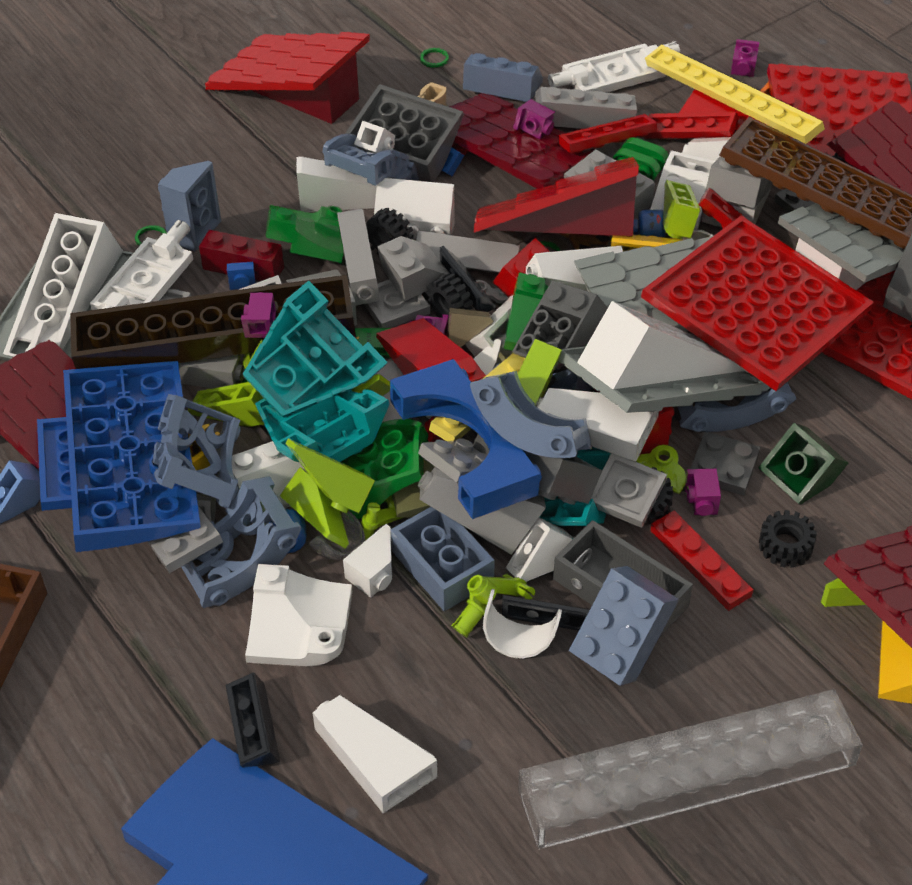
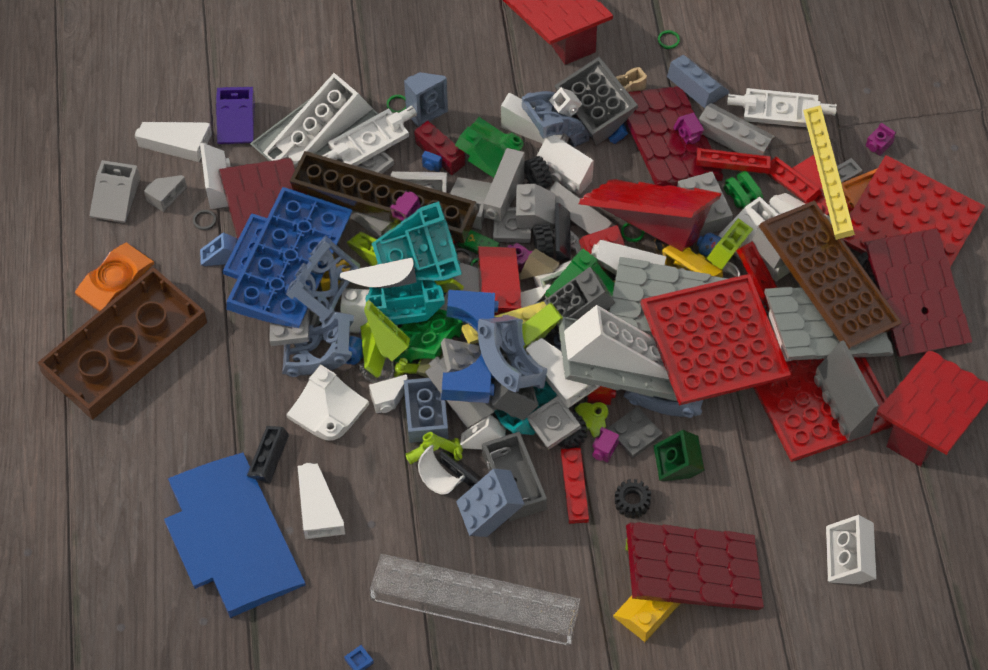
camera: 30 degrees right, 10 degrees up
(281, 408) = (383, 275): none -> white sticker

